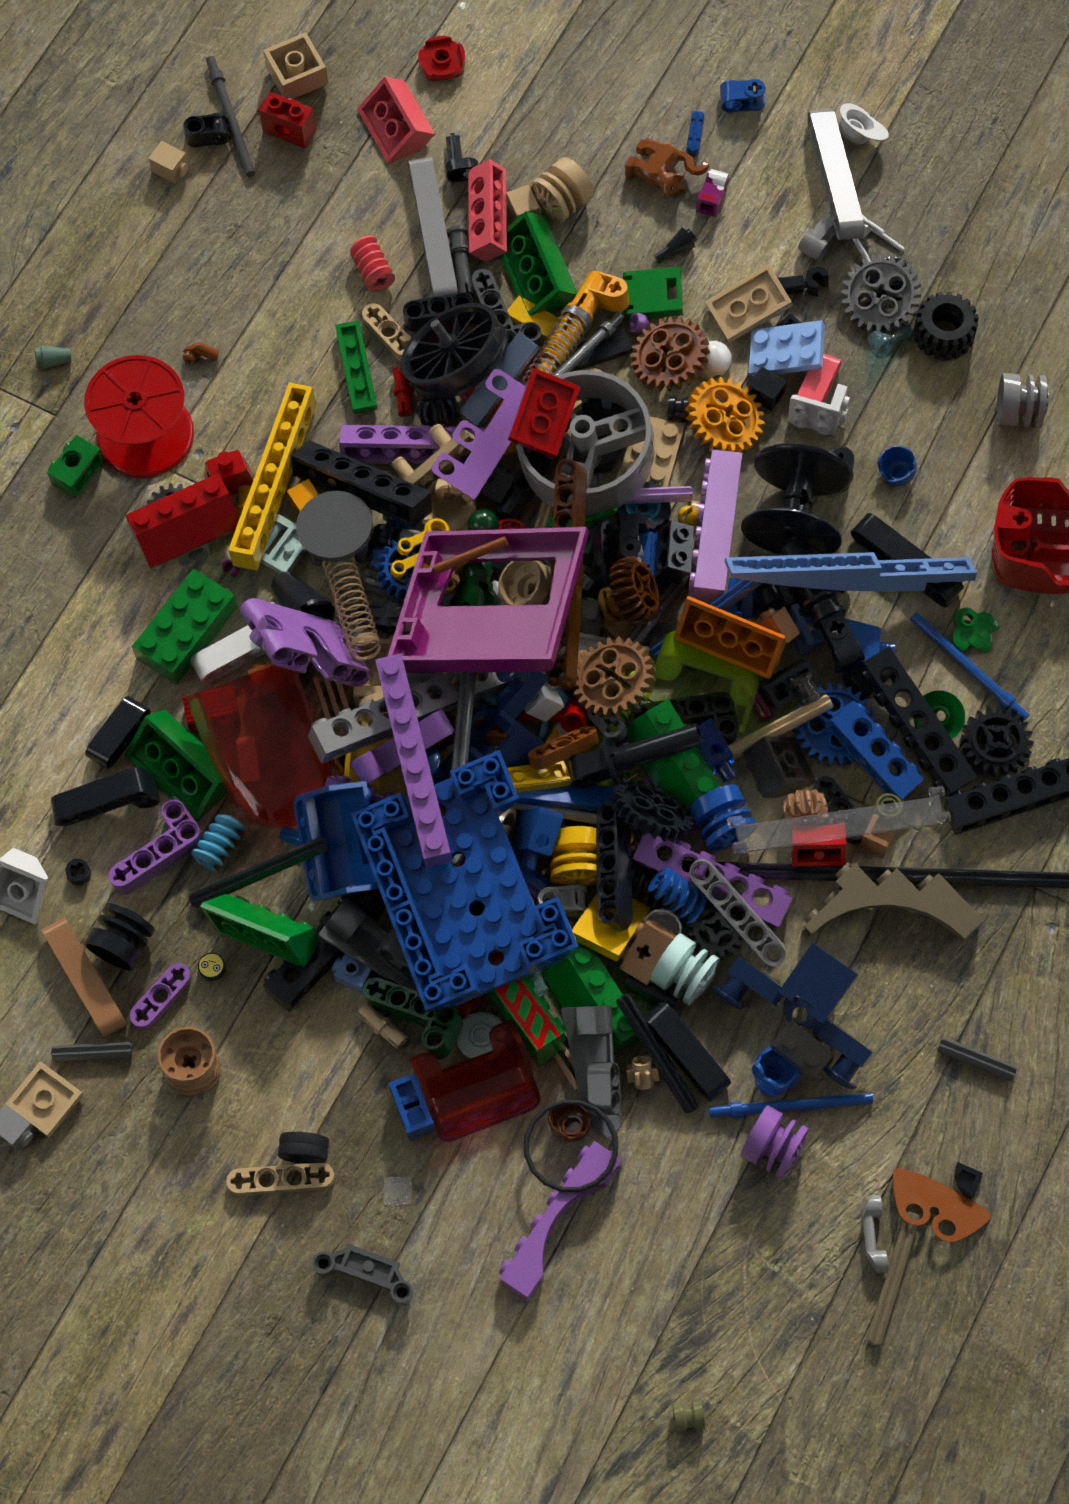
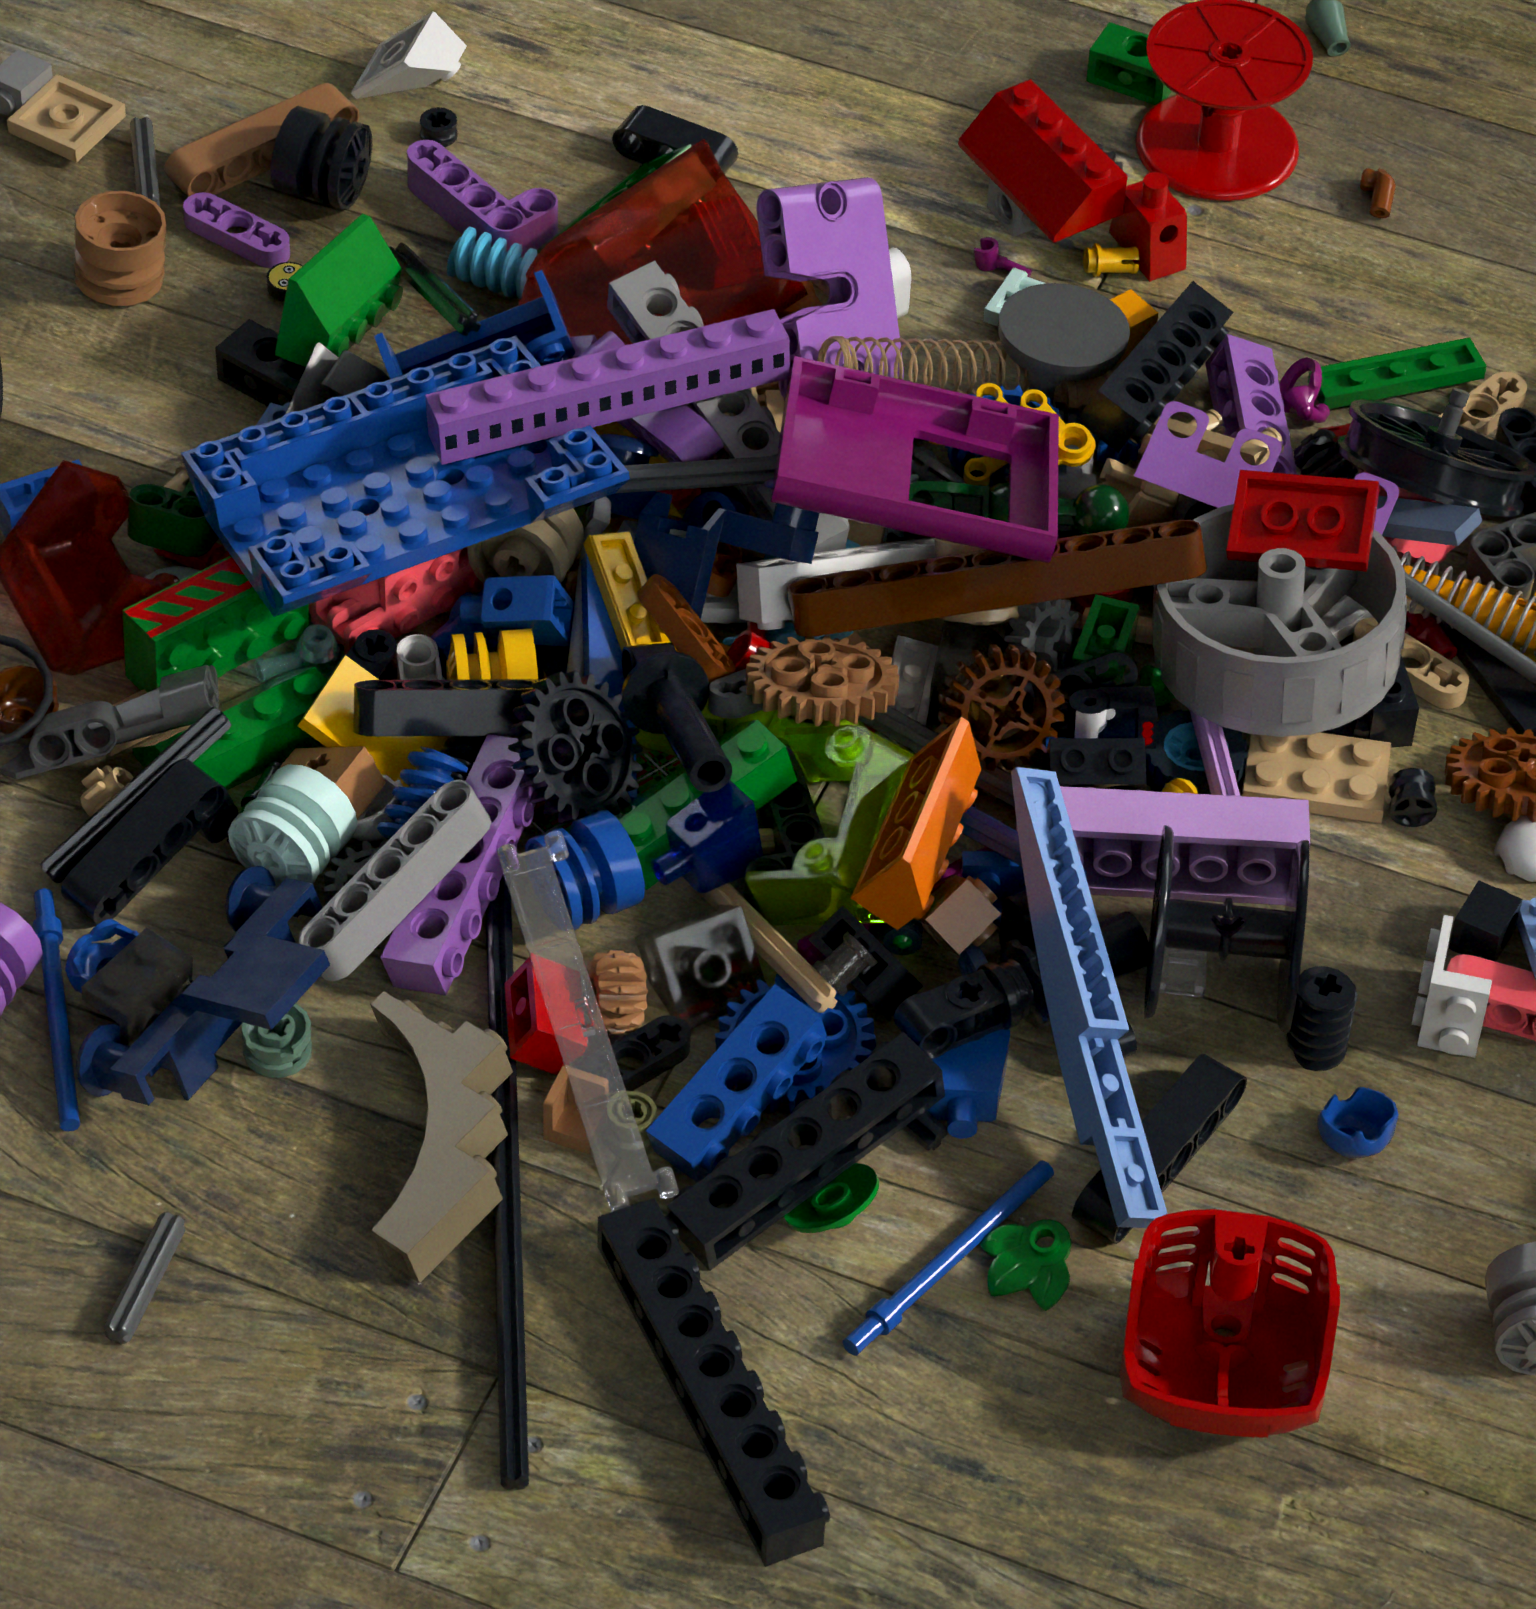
camera: 80 degrees right, 20 degrees down
(104, 795) = (564, 137): black beam -> none
(184, 626) = (918, 206): green brick -> none
(272, 477) = (1154, 267): yellow brick -> none
(297, 595) = (936, 315): black cone -> none
(379, 414) = (1302, 398): none -> magenta piece
(470, 555) = (1006, 444): dark orange bar -> none
(724, 415) = (1365, 845): light orange gear -> none
(991, 734) = (794, 1309): black gear -> none

